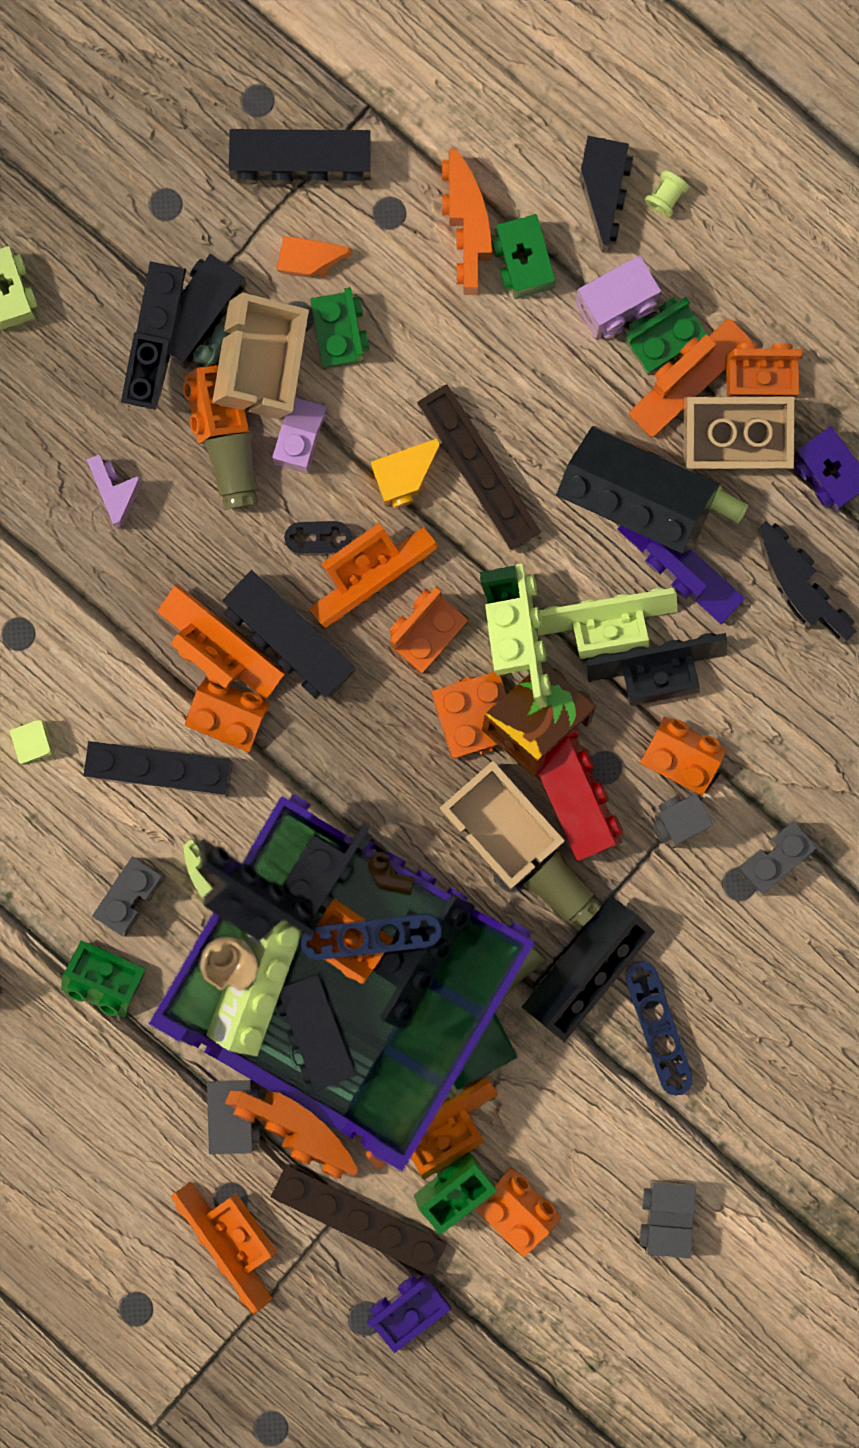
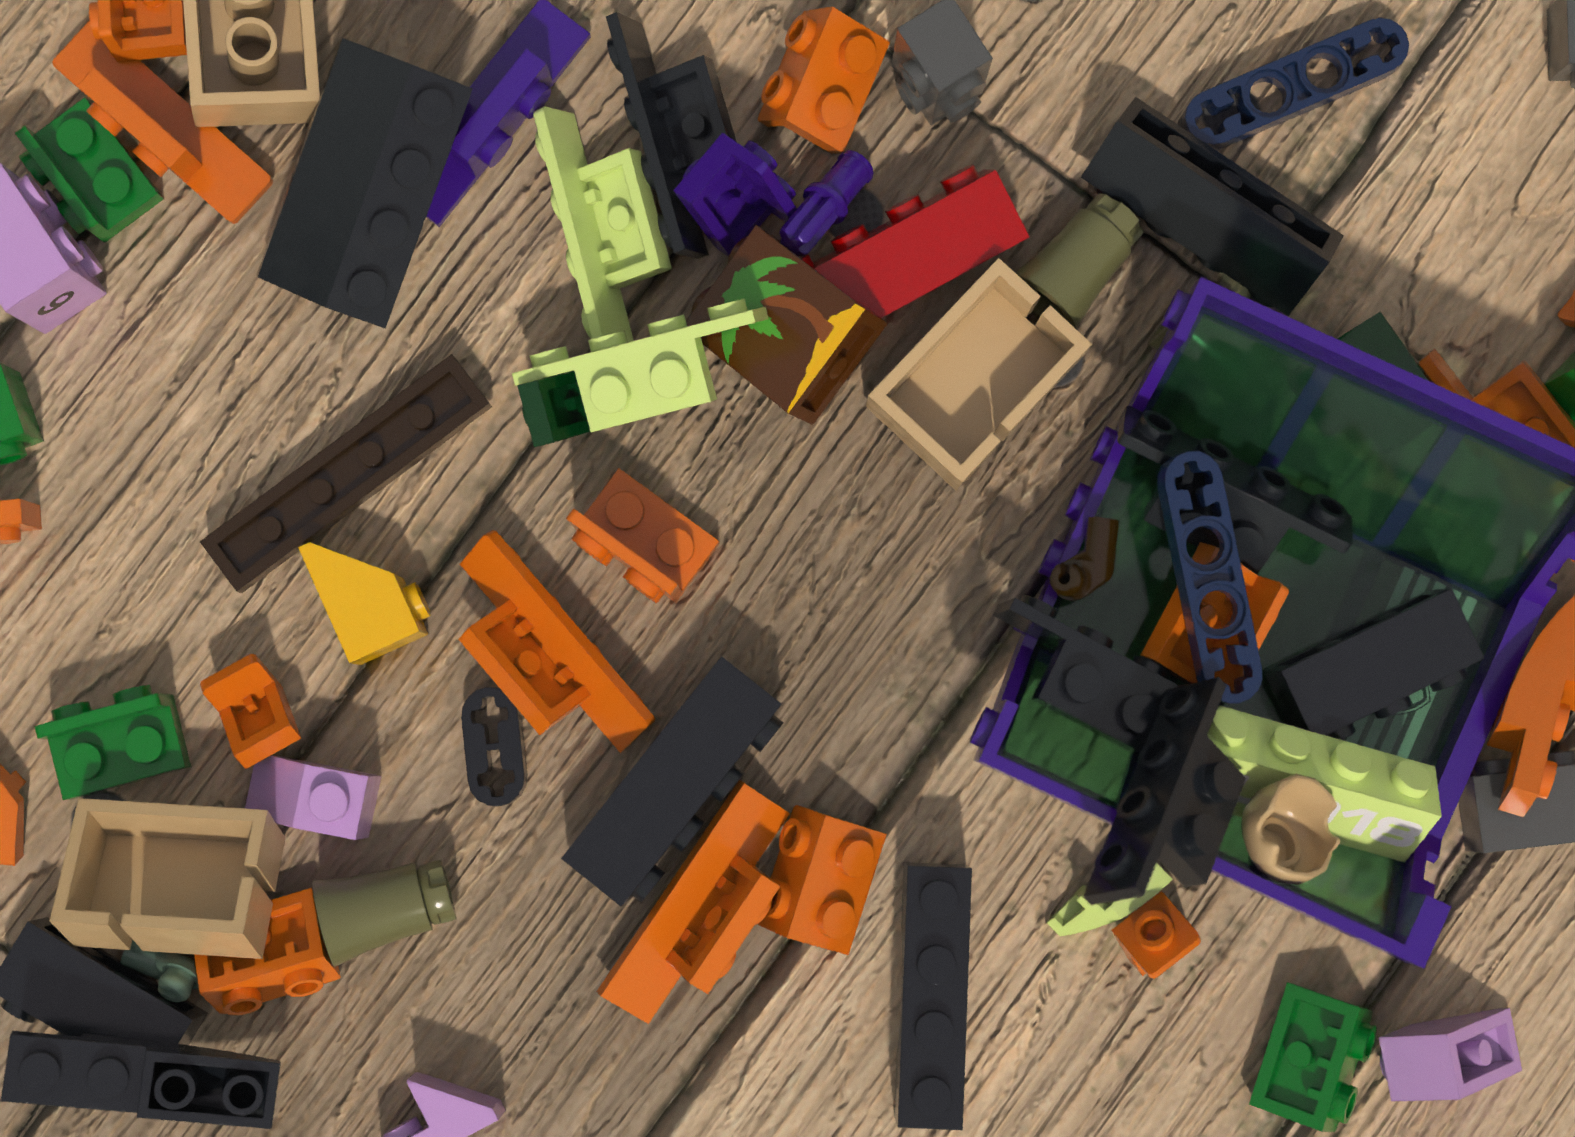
camera: 100 degrees left, 0 degrees up
(96, 1056) = (1450, 1056): none -> lavender slope
(119, 904) = (1185, 1040): dark grey brick -> none
(178, 894) = (1156, 936): none -> orange bracket
(349, 406) = (251, 710): none -> orange bracket
(462, 712) = (778, 457): orange plate -> none
(609, 749) = (826, 202): none -> dark purple axle
(616, 696) = (734, 191): none -> dark purple bracket
(729, 506) = (386, 29): yellowish green pin -> none

